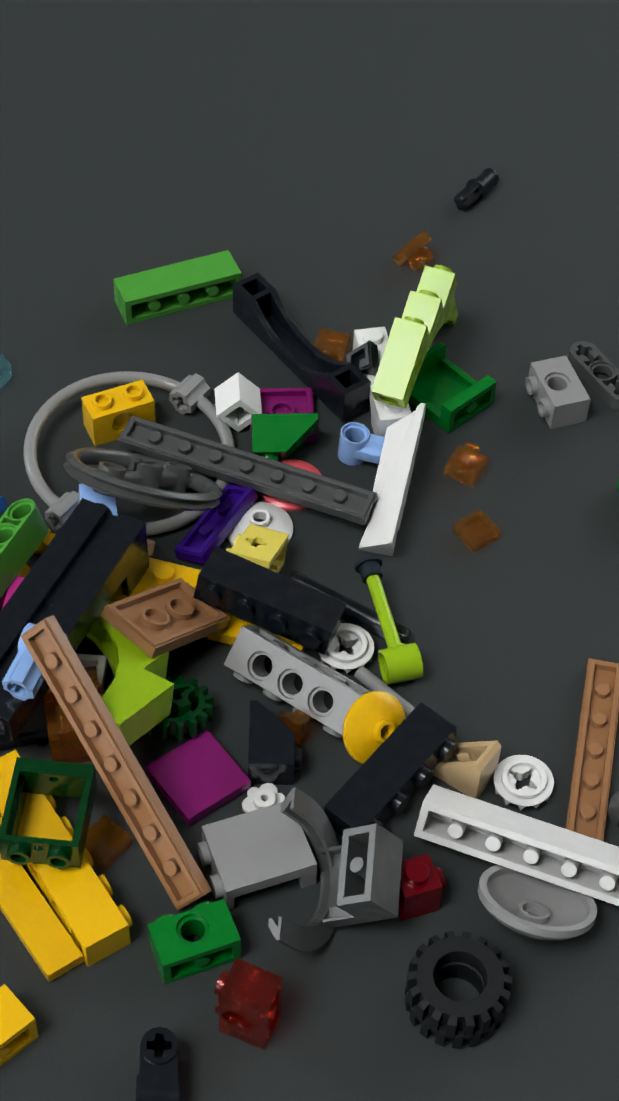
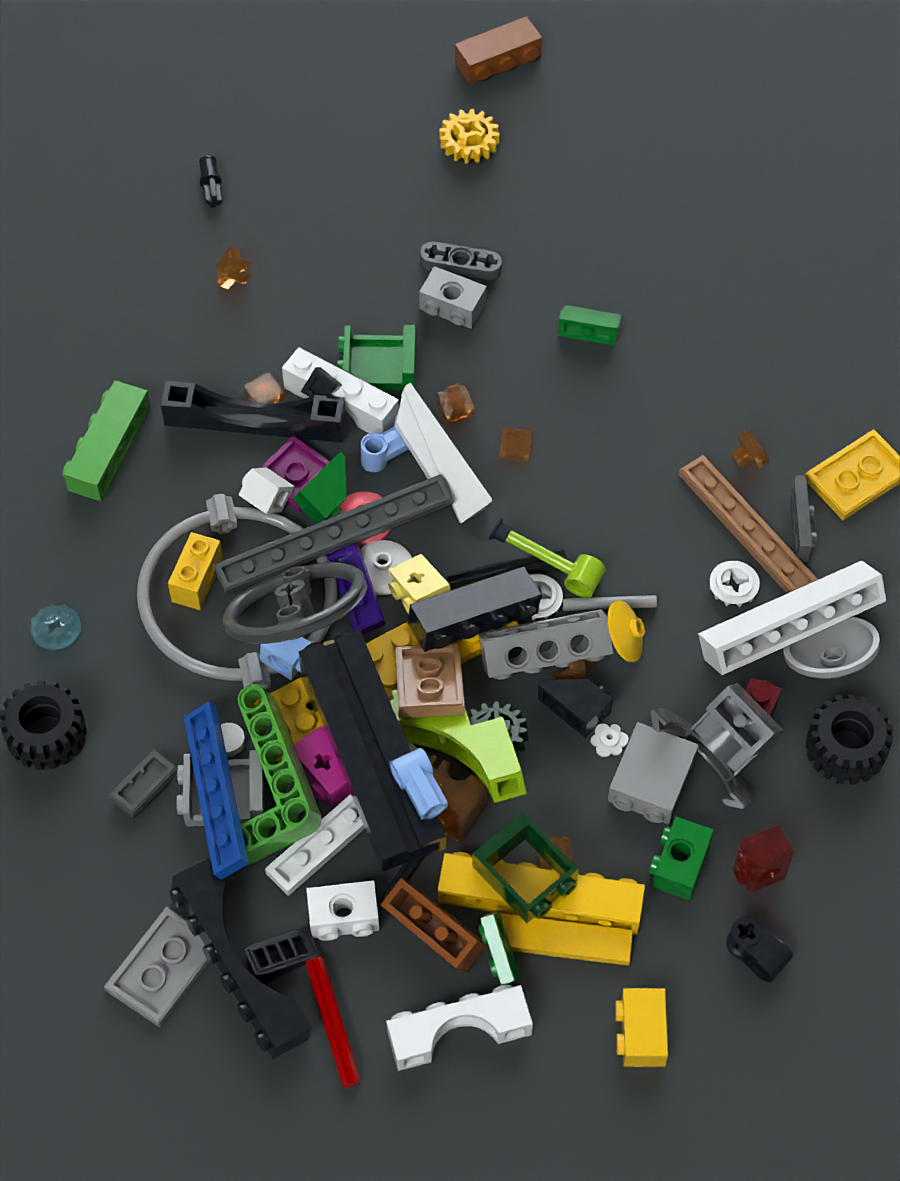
camera: 45 degrees left, 10 degrees up
(115, 762) = (533, 796): medium nougat tile -> none
(198, 777) = (557, 762): magenta tile -> none
(394, 771) = (668, 650): black brick -> none
(414, 333) = (338, 323): arch -> none
(470, 767) = (696, 603): tan slope -> none

